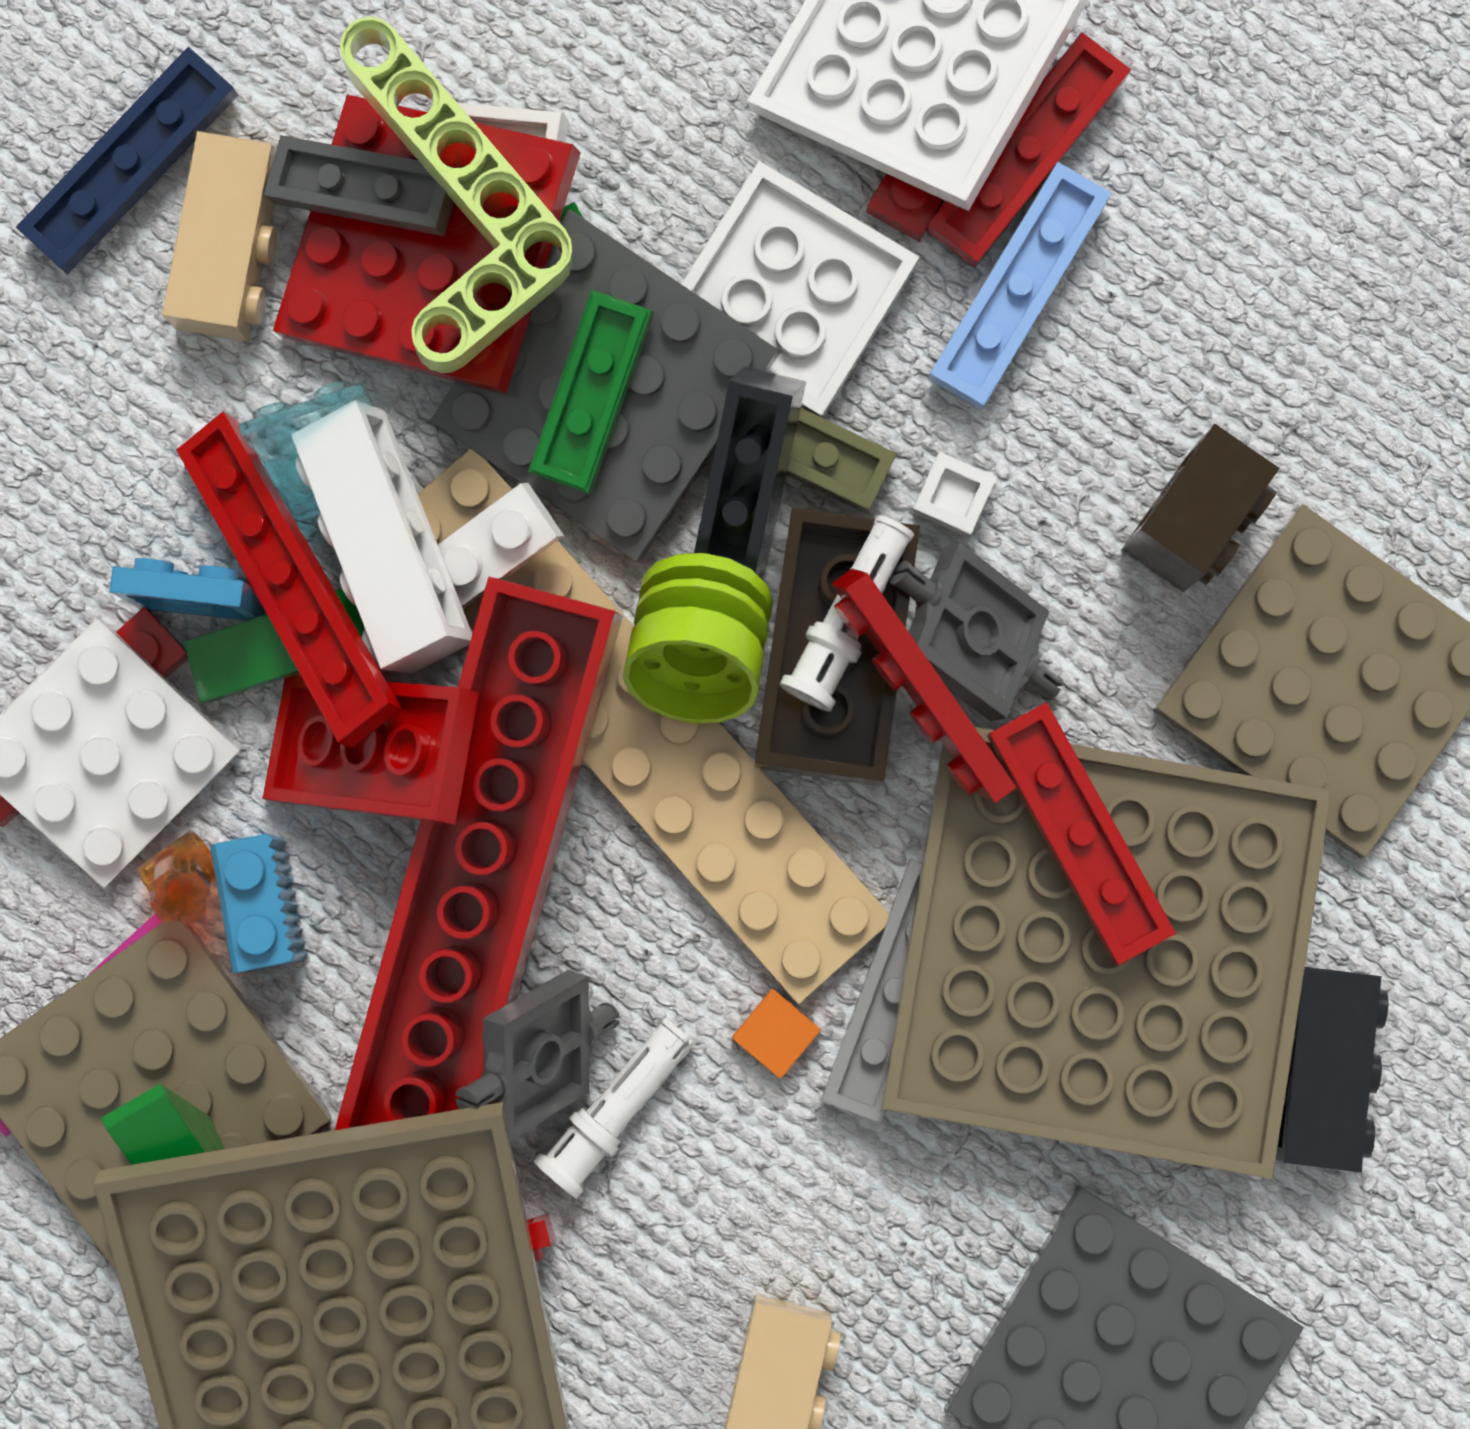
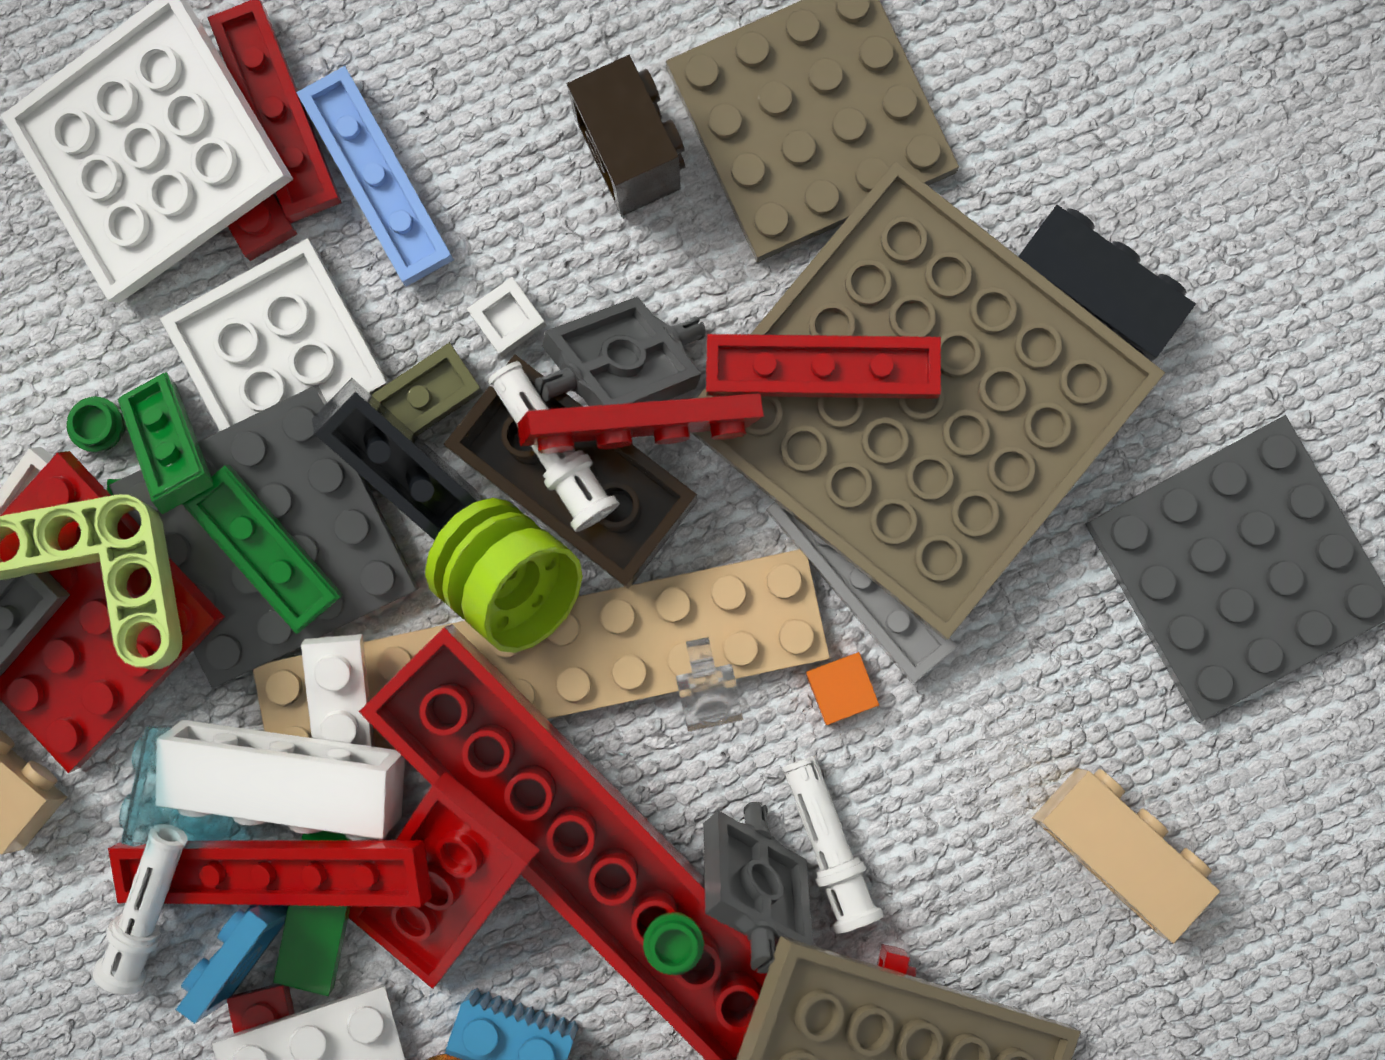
camera: 55 degrees left, 0 degrees up
(159, 483) = (136, 929): none -> white pin
(437, 1004) = (673, 943): none -> green plate
(620, 158) = (95, 424): none -> green plate
(640, 238) = (165, 443): none -> green tile
(698, 902) = (708, 692): none -> clear plate

